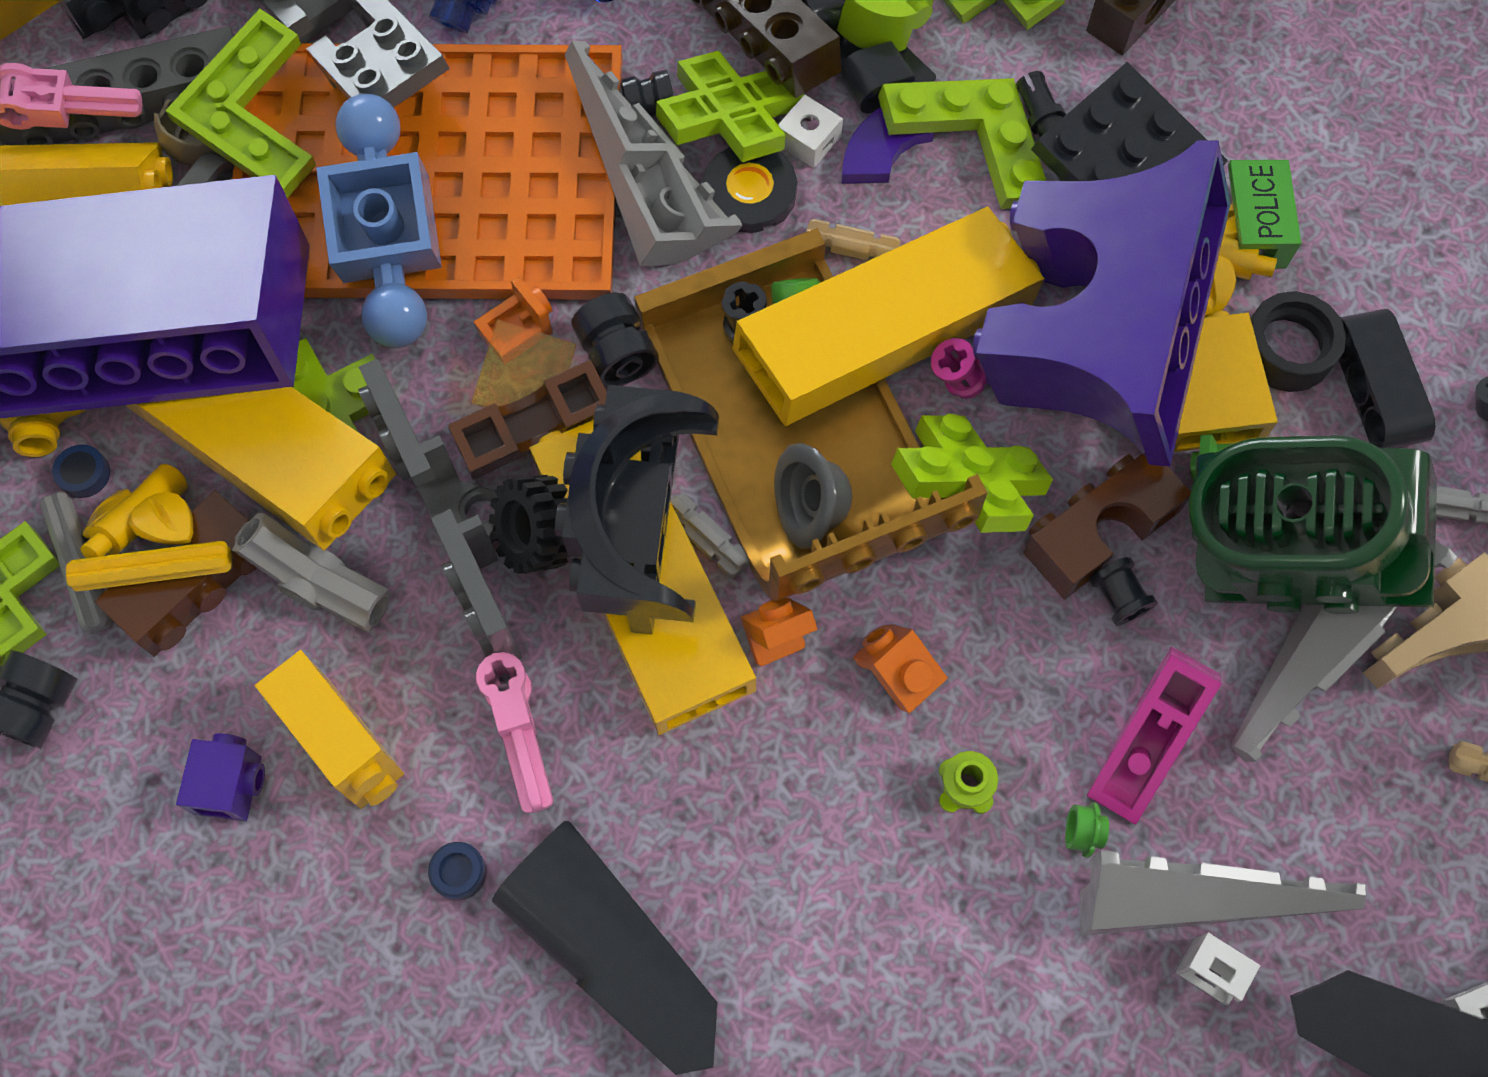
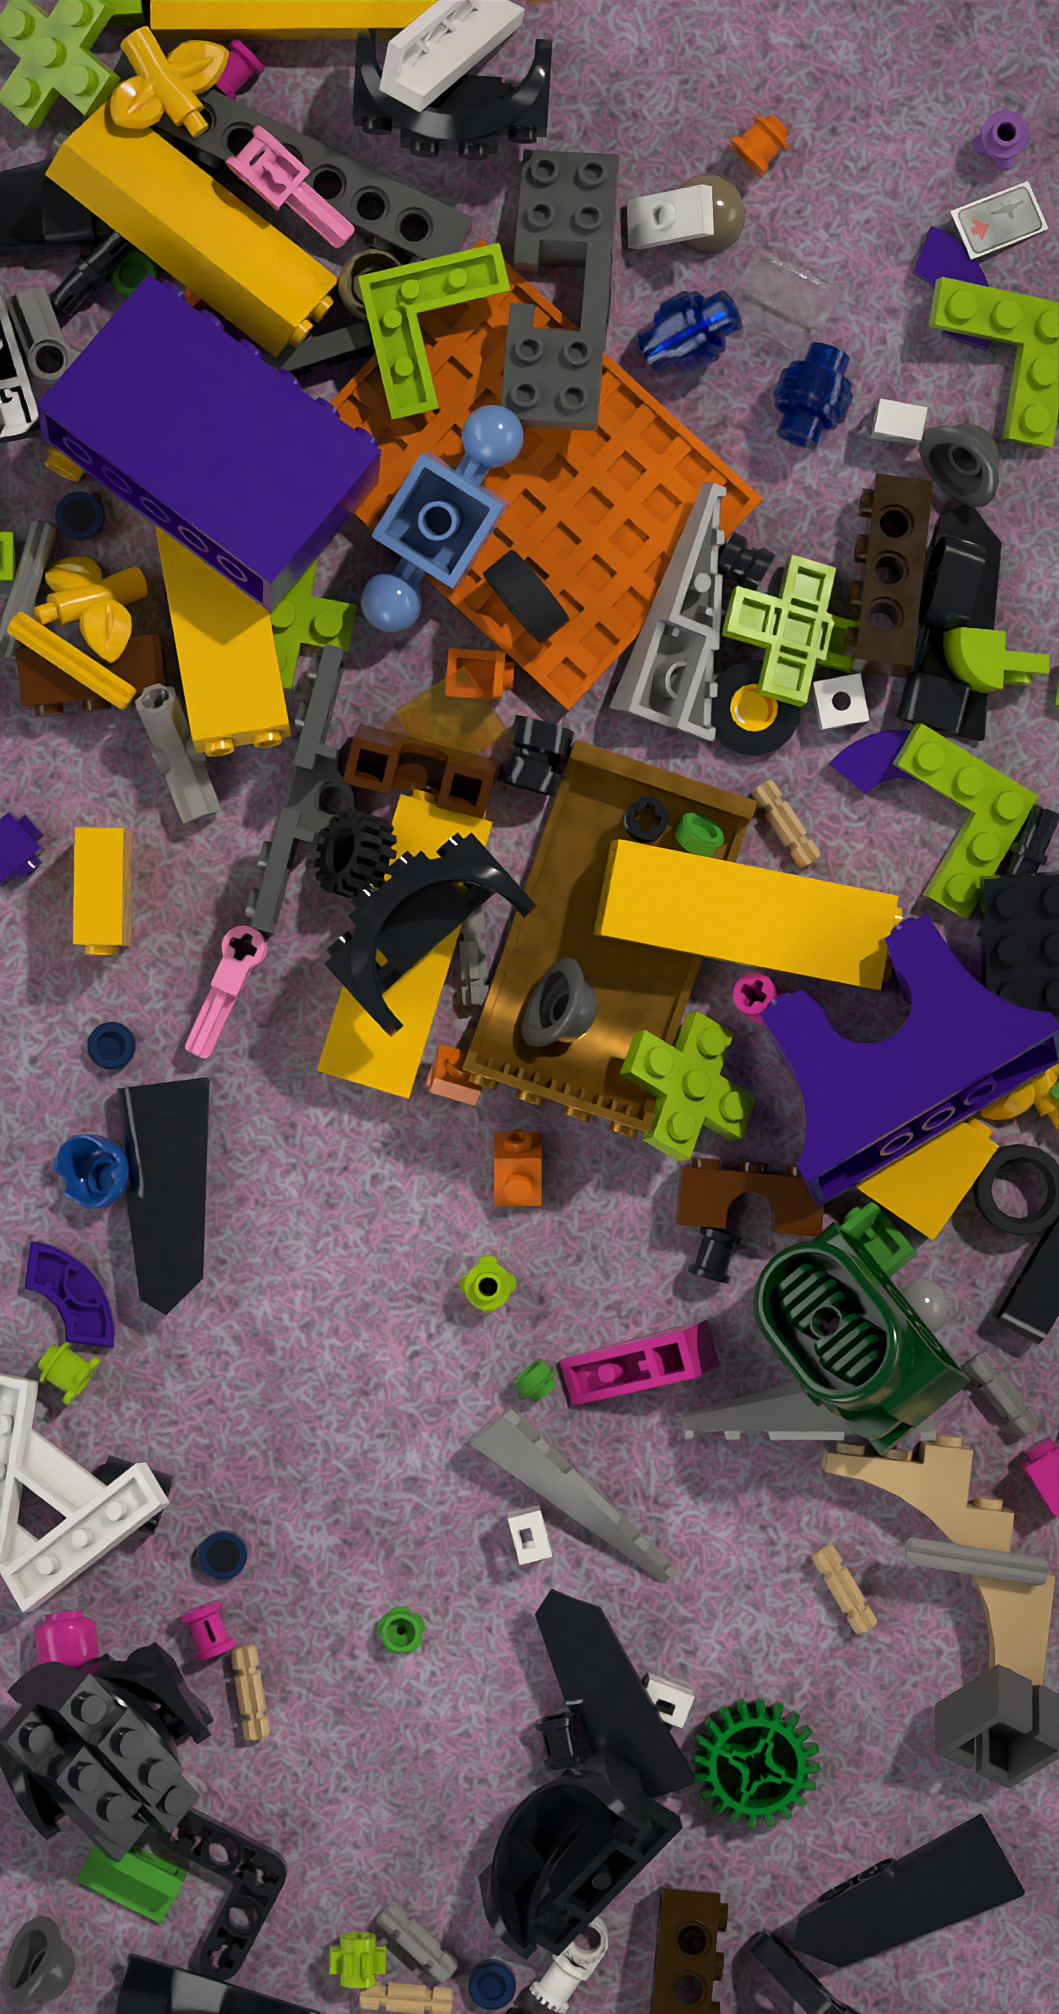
camera: 40 degrees right, 20 degrees up
(498, 218) = (526, 596): none -> black tyre
(529, 994) = (92, 1170): none -> blue hair

